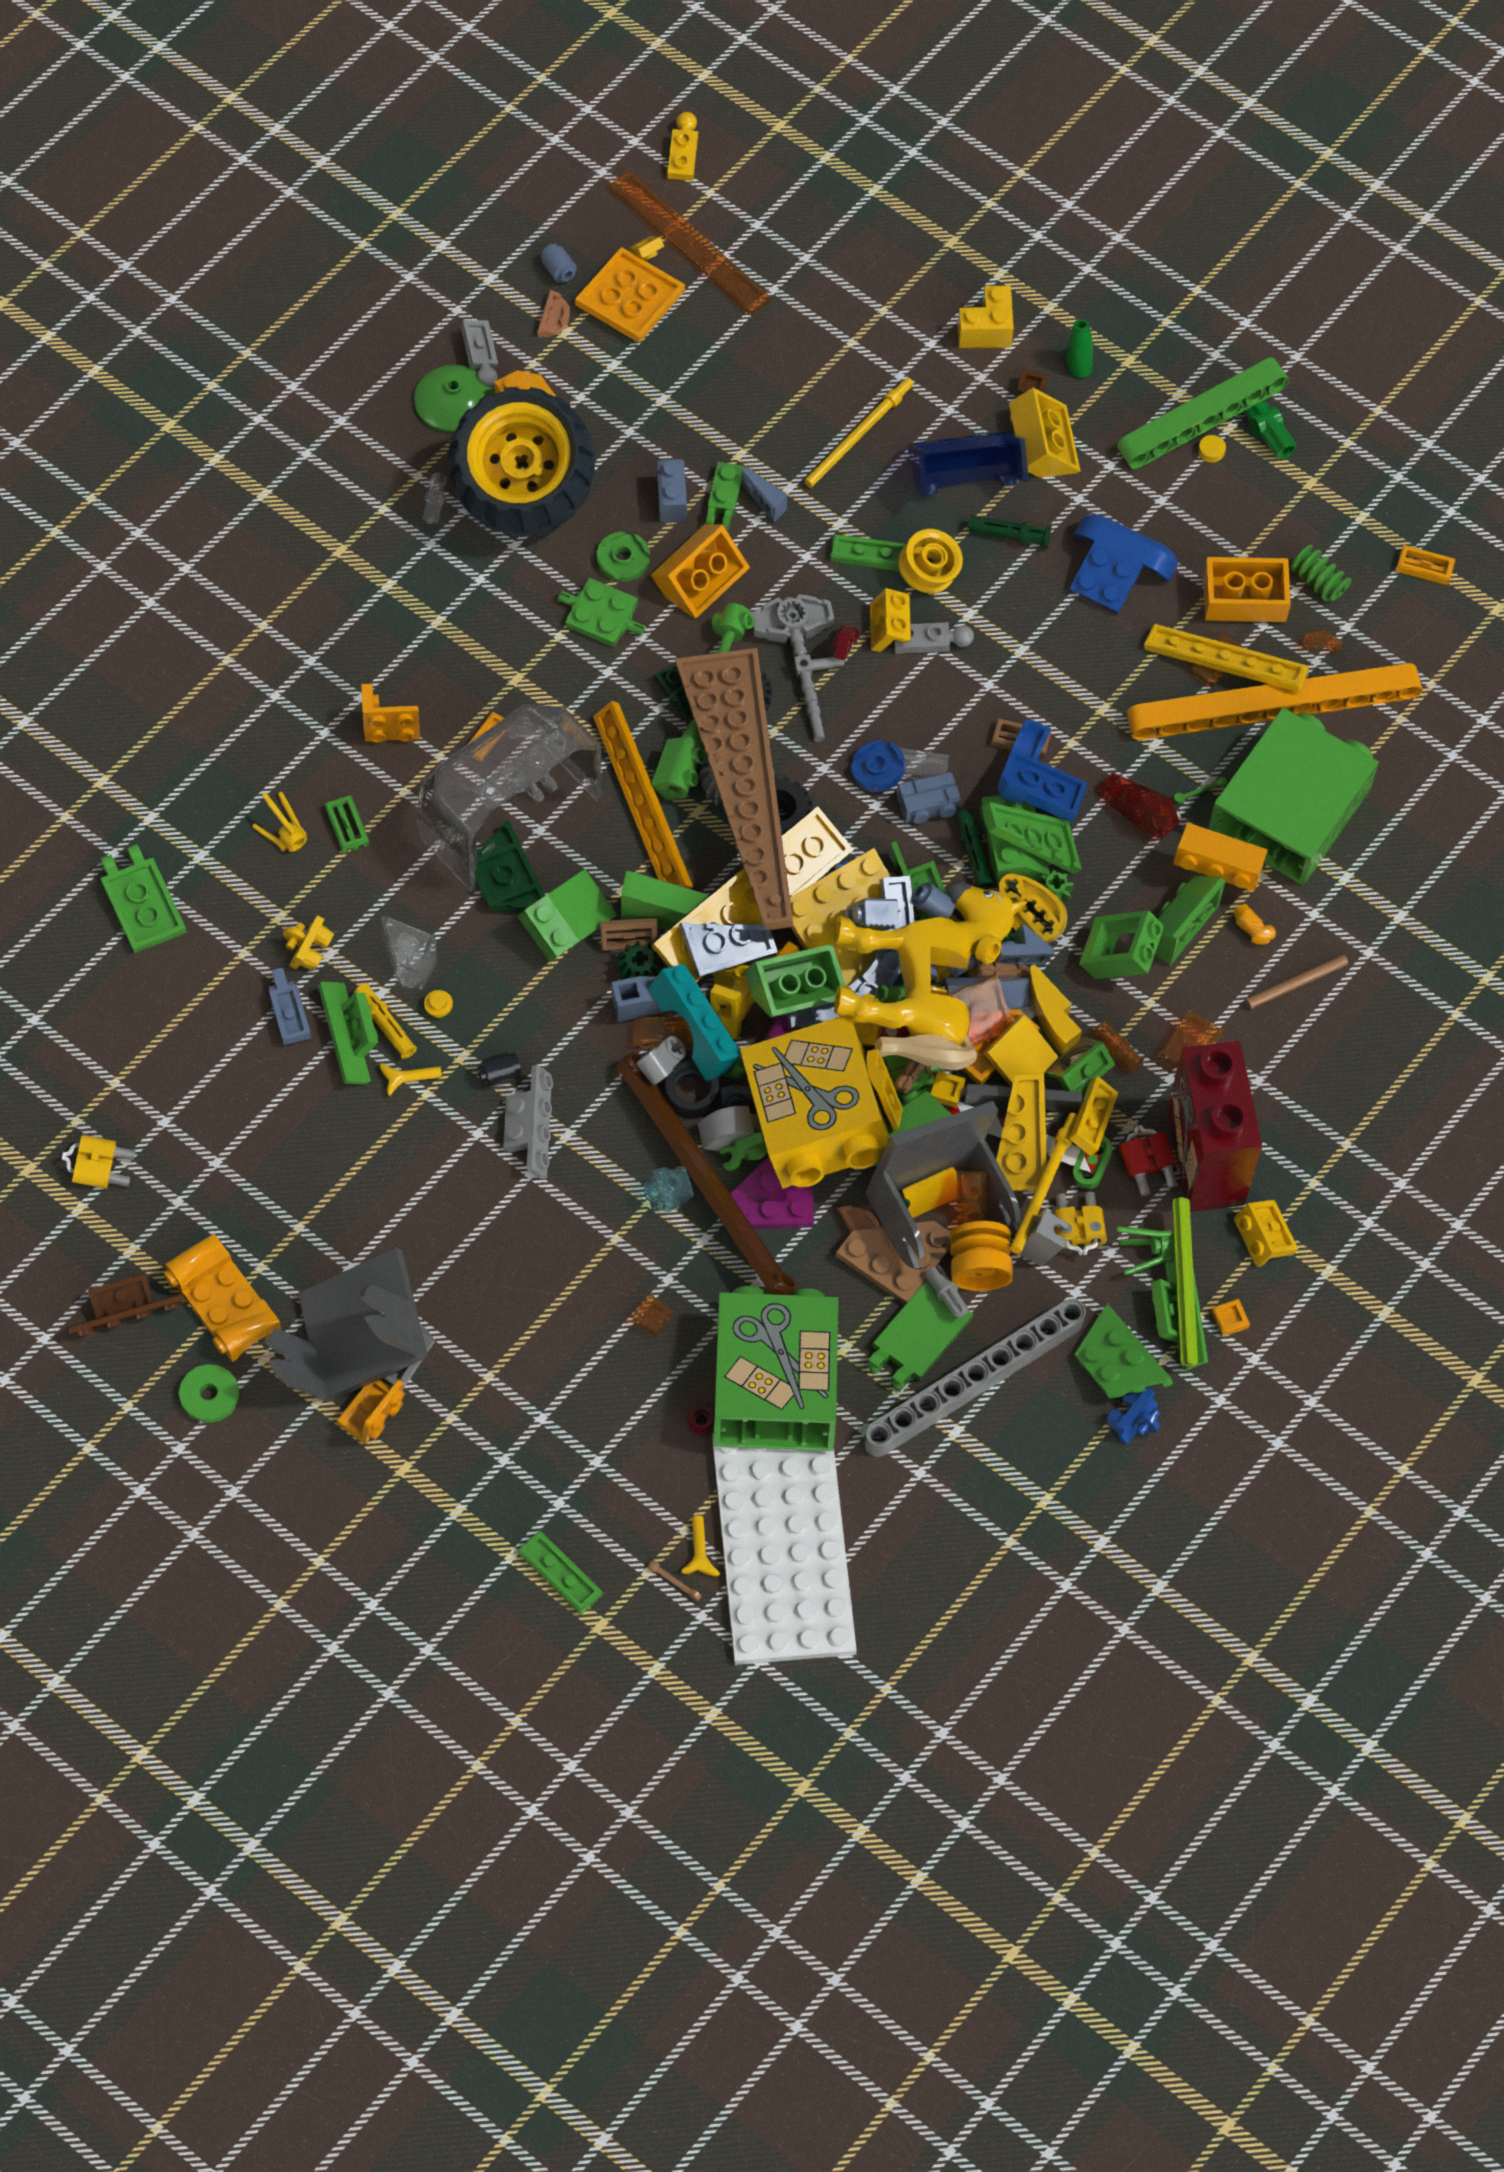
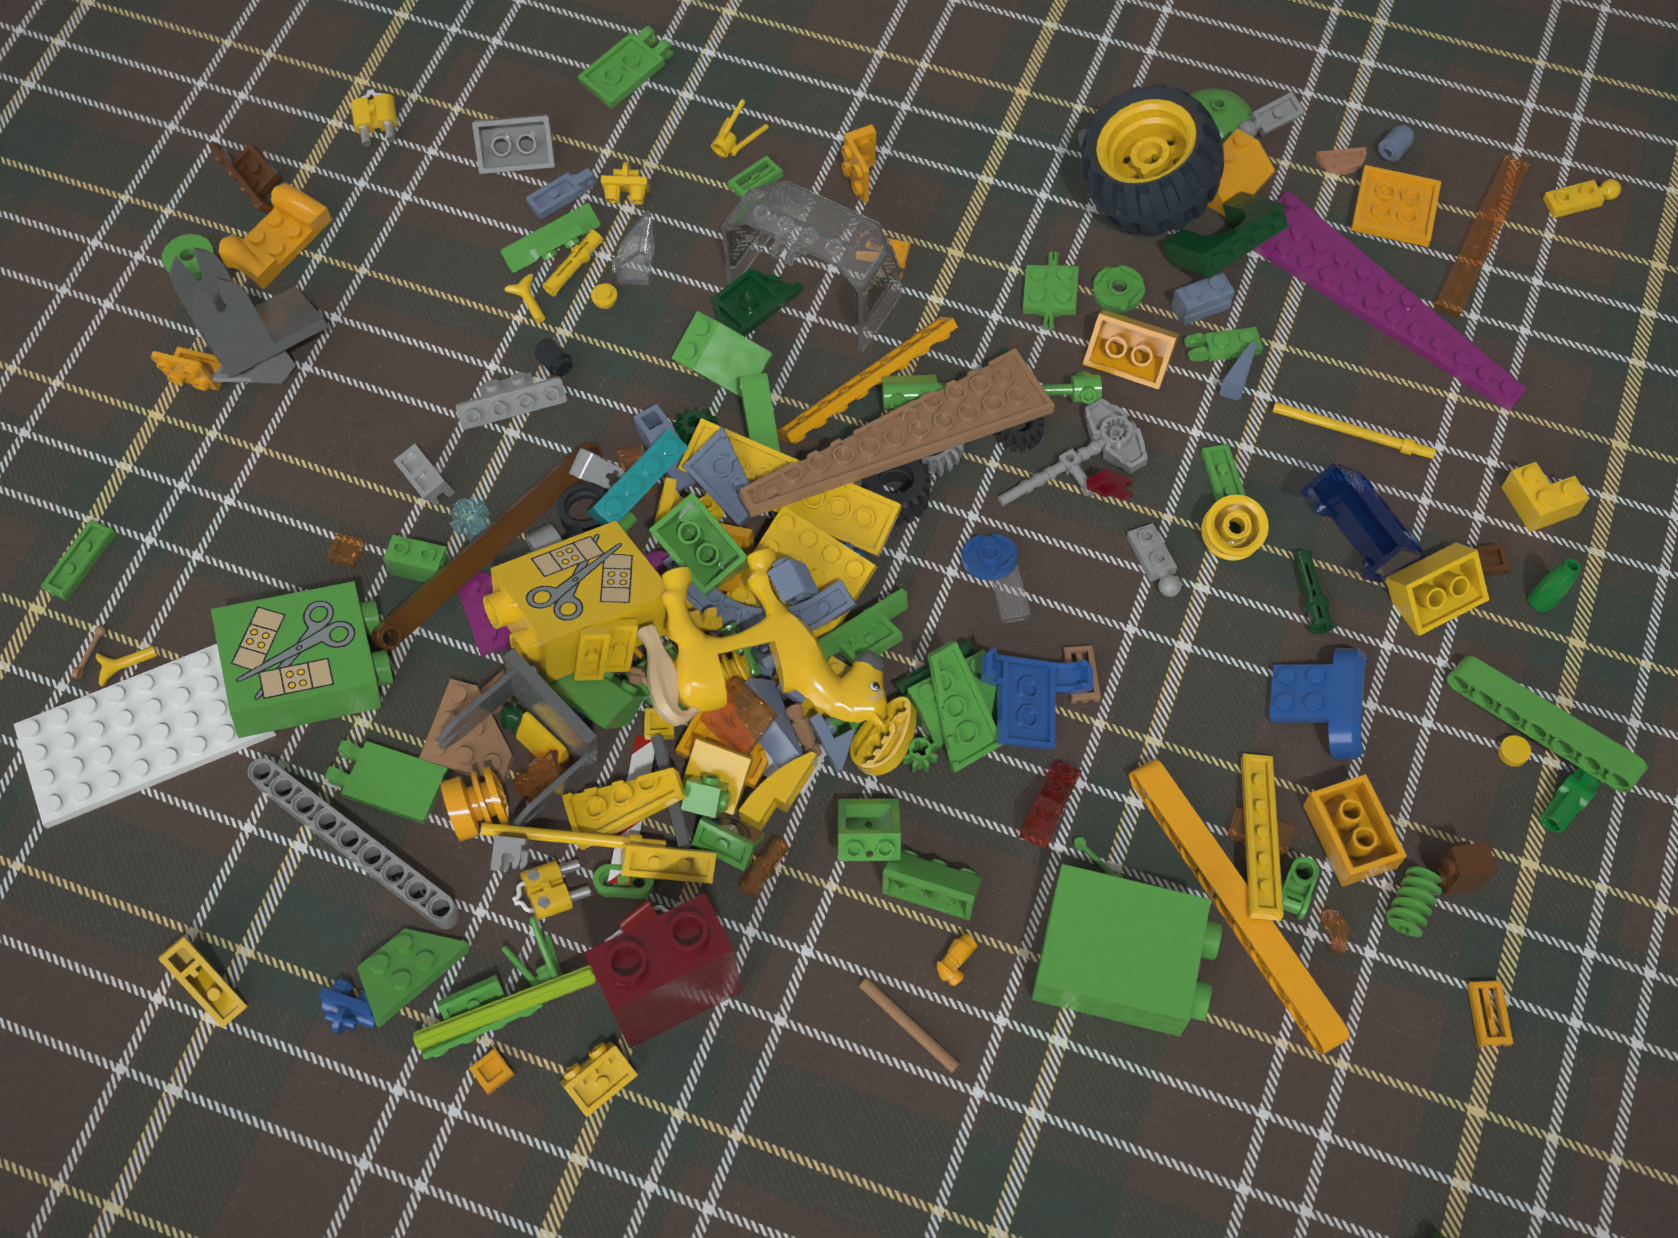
camera: 75 degrees right, 0 degrees up
(200, 1032) = (514, 143): none -> light grey slope
(595, 1219) = (423, 474): none -> light grey hinge
(623, 931) = (722, 404): medium nougat tile -> none
(637, 459) = (1253, 222): none -> dark green arch
(647, 248) = (1452, 202): yellow plate -> none
(673, 374) = (1347, 276): none -> magenta wing
(694, 1249) = (414, 558): none -> bright green hinge
(889, 619) = (1155, 516): yellow bracket -> none
(928, 798) = (972, 609): sand blue brick -> none
(932, 901) = (841, 637): sand blue brick -> none
(946, 1291) = (430, 787): light grey axle -> none
(988, 949) = (807, 702): yellow tile -> none
(1042, 1060) = (706, 795): none -> bright green brick
(1065, 1535) = (202, 981): none -> yellow slope
(1192, 1031) = (793, 939): clear orange plate -> none
(1220, 856) = (1005, 894): light orange slope -> none
(1281, 647) = (1296, 891): none -> bright green piece
(1307, 523) = (1465, 867): none -> reddish brown brick

